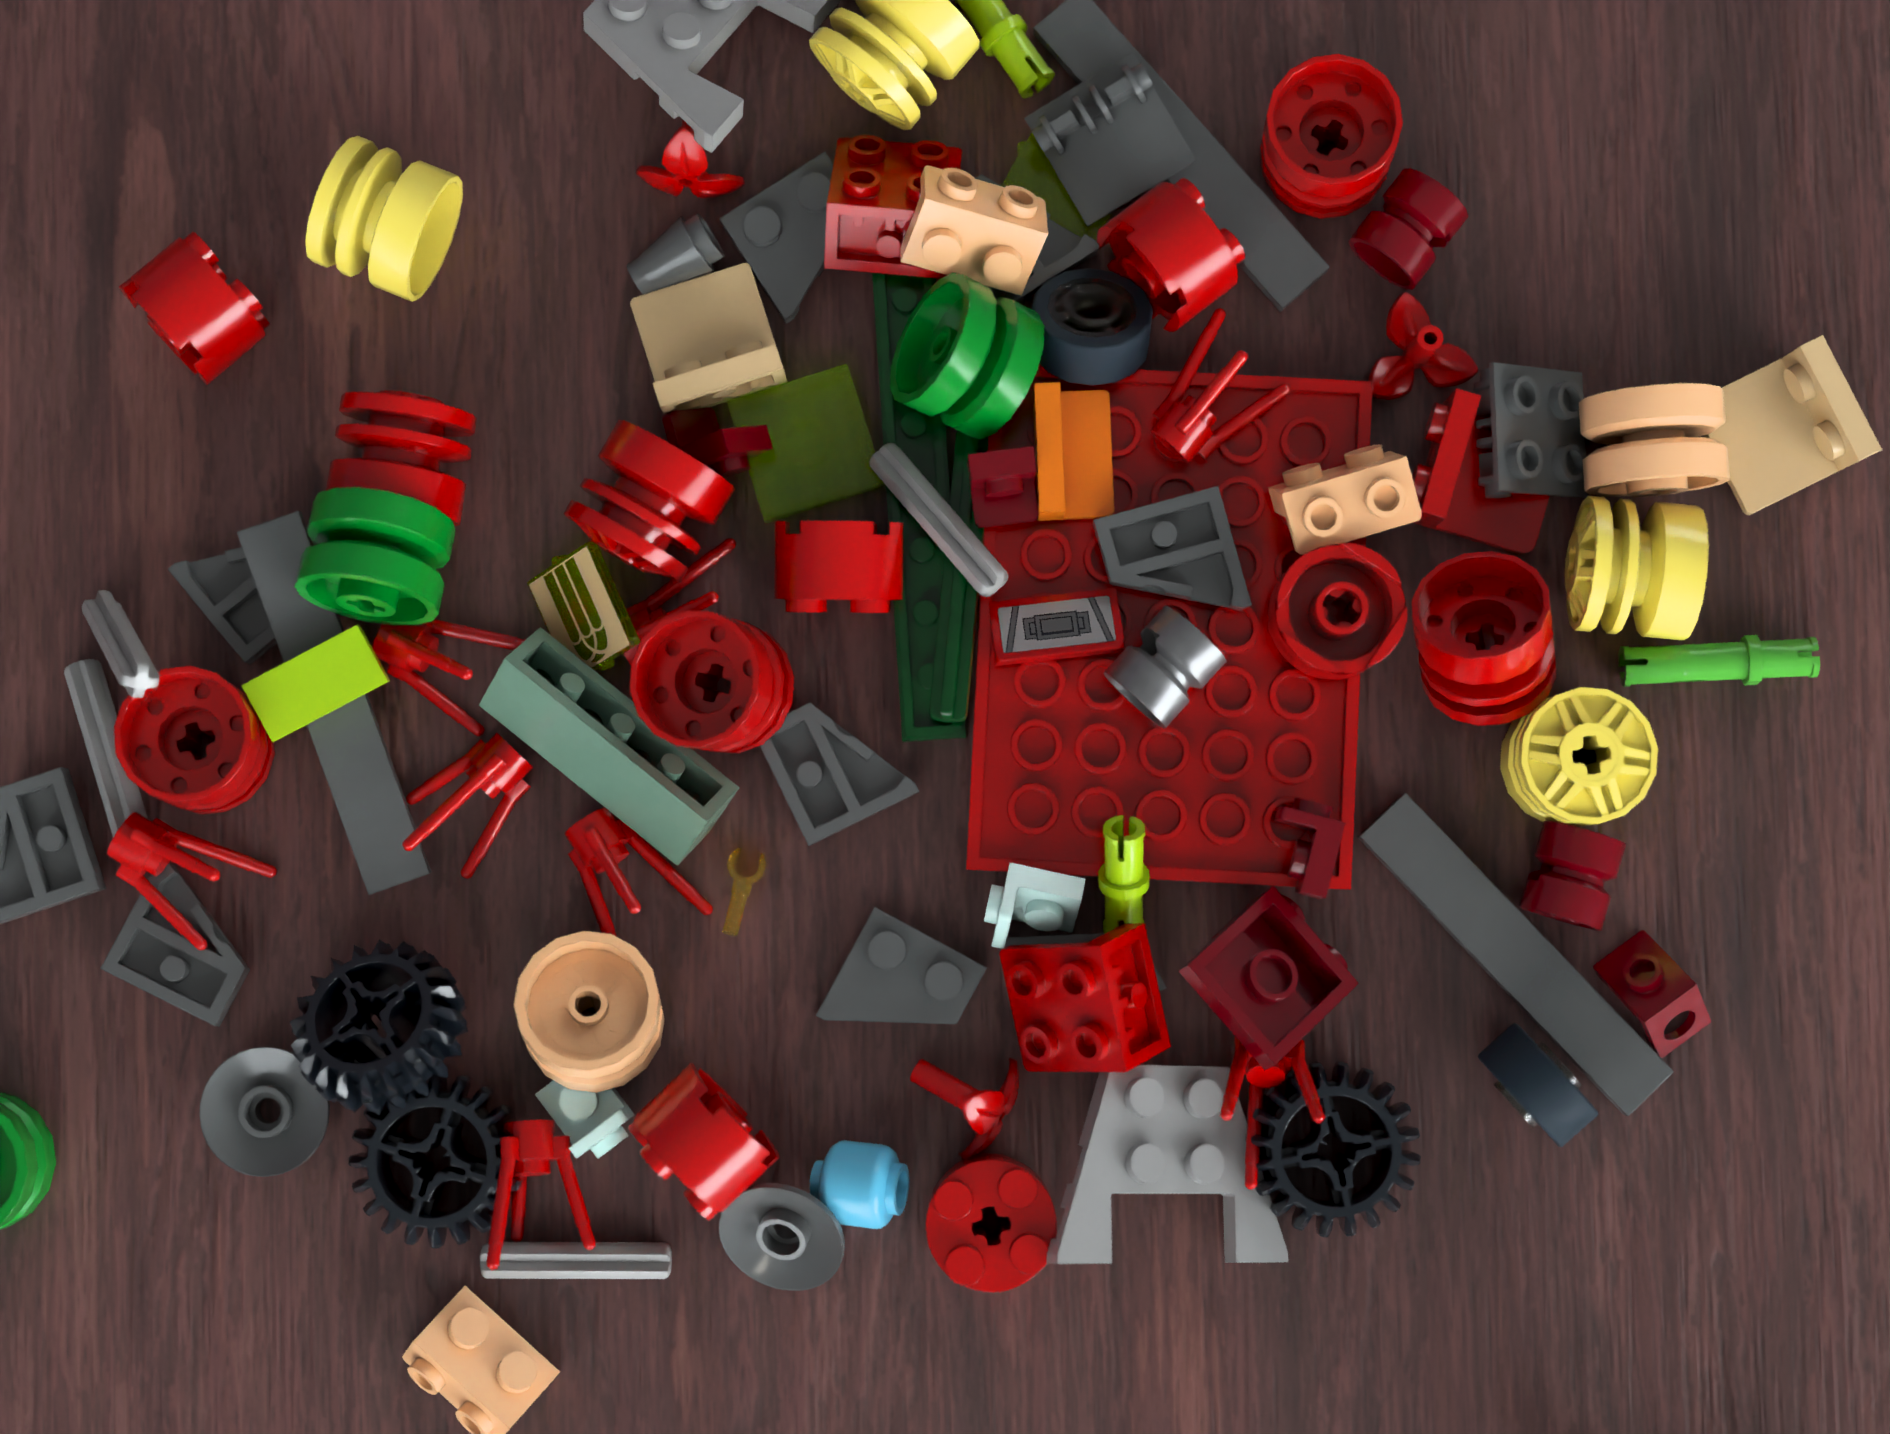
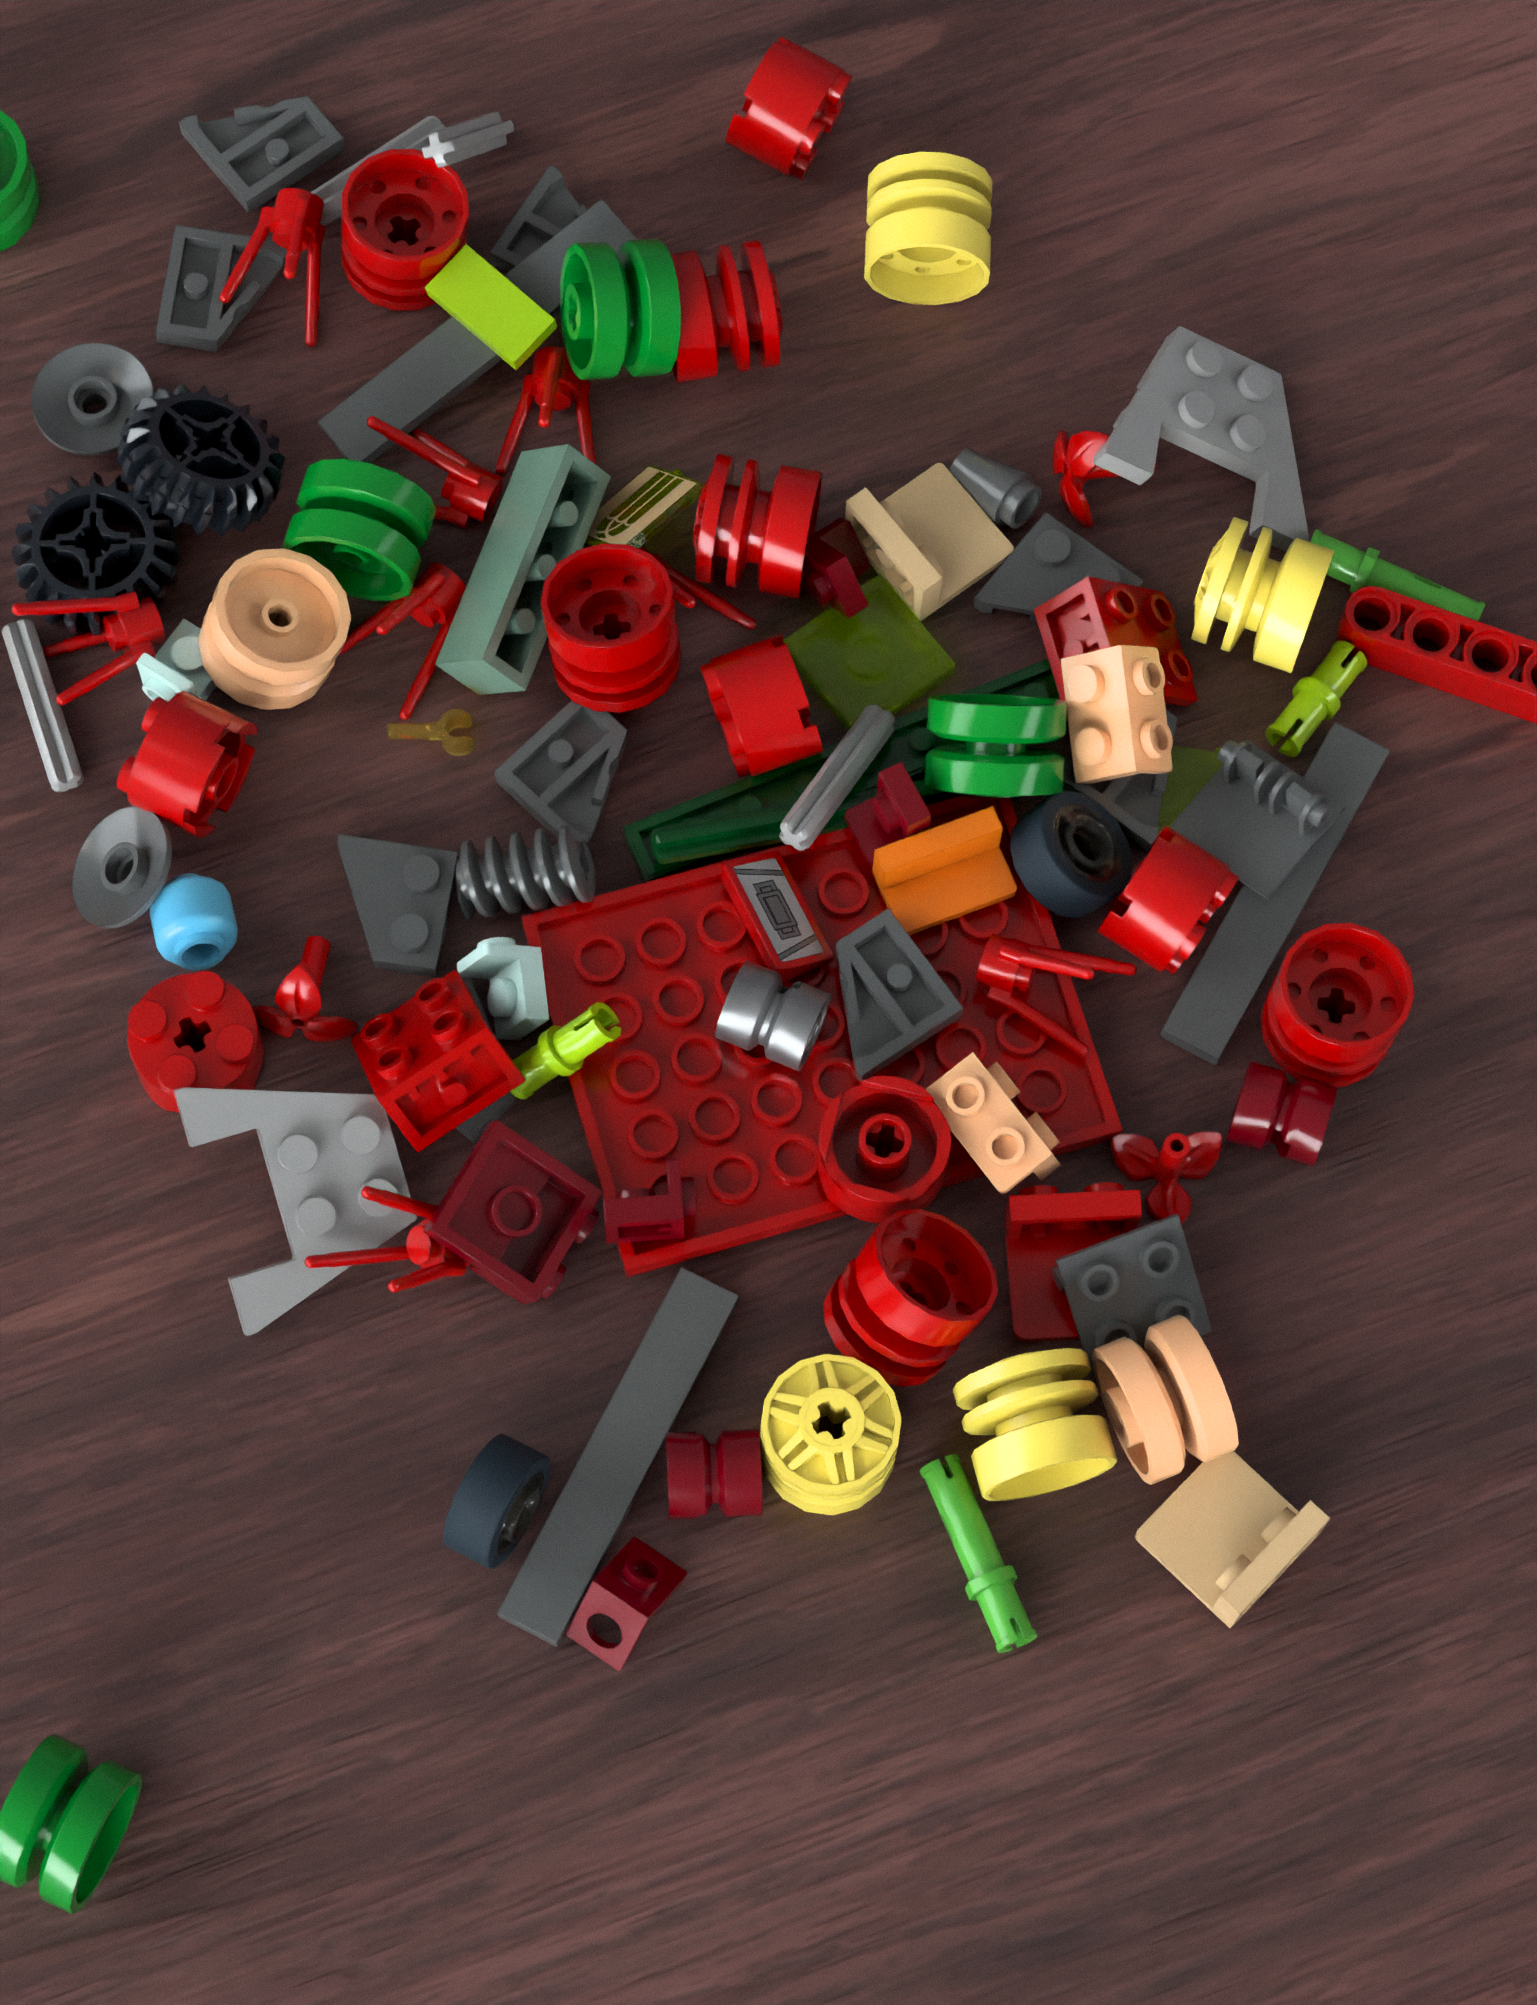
camera: 65 degrees right, 15 degrees down
(509, 891) = (362, 526): none -> green wheel
(929, 852) = (524, 874): none -> dark grey piece
(1339, 1180) = (345, 1352): black gear -> none

